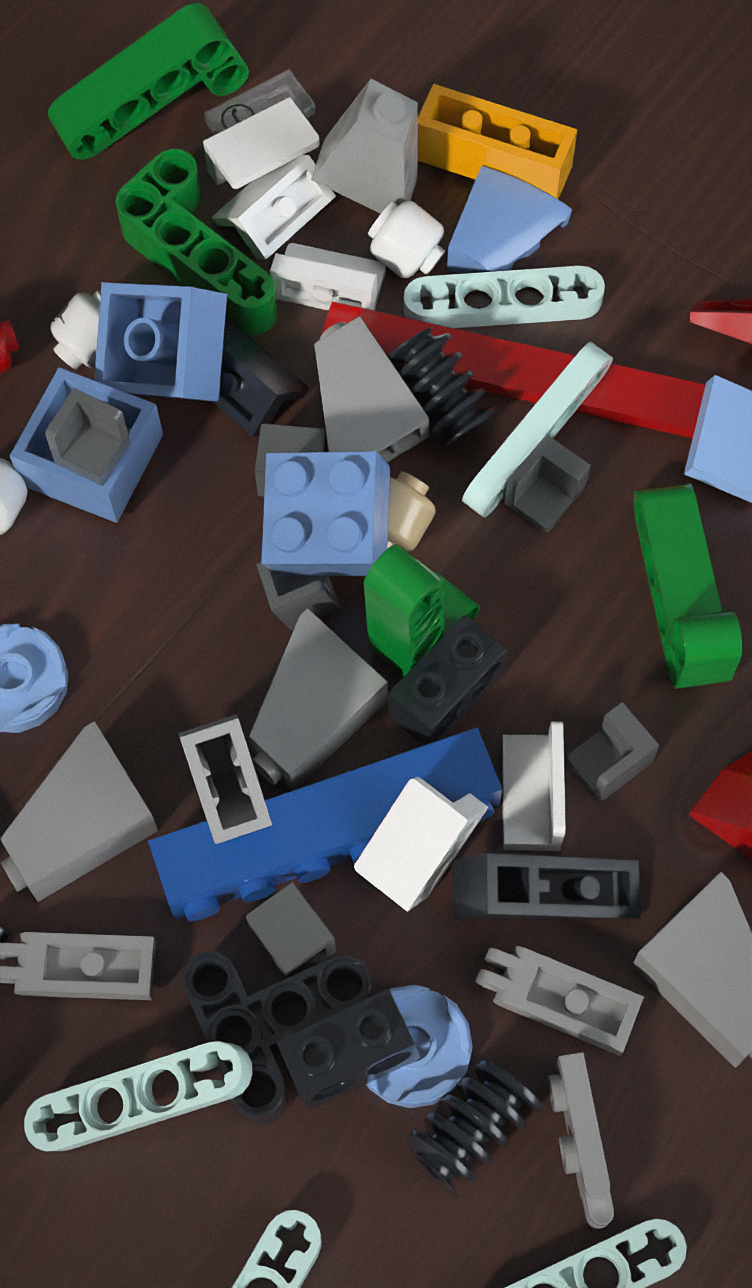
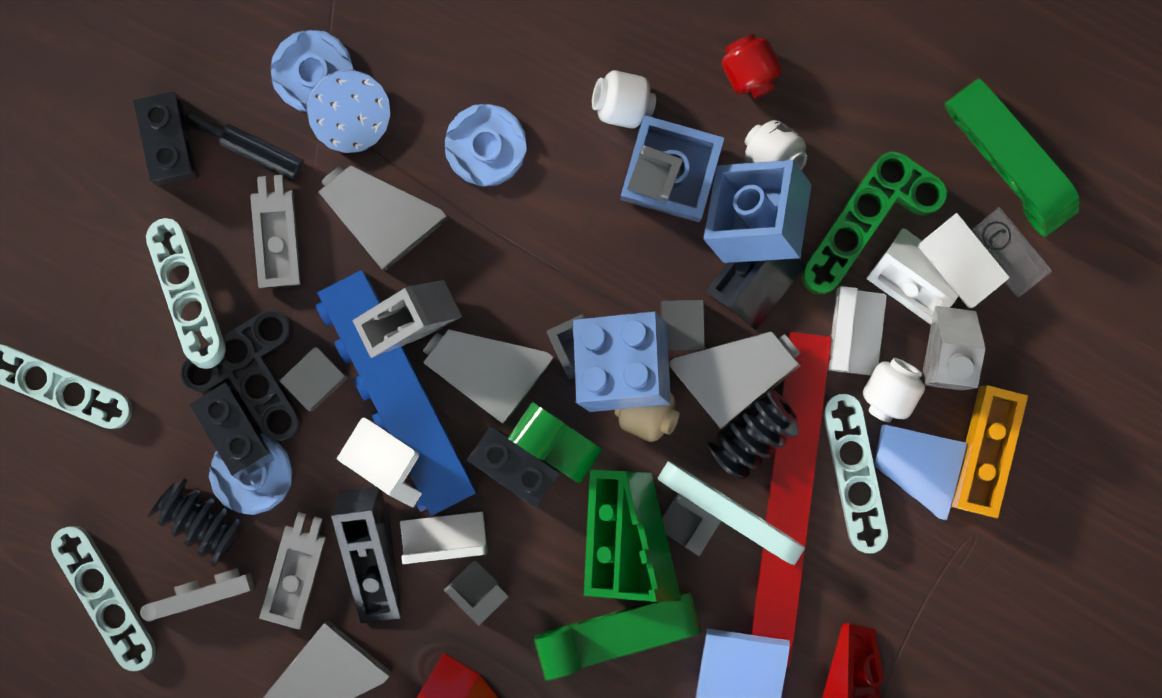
camera: 85 degrees right, 20 degrees up
(562, 549) = (627, 540): none -> green wedge

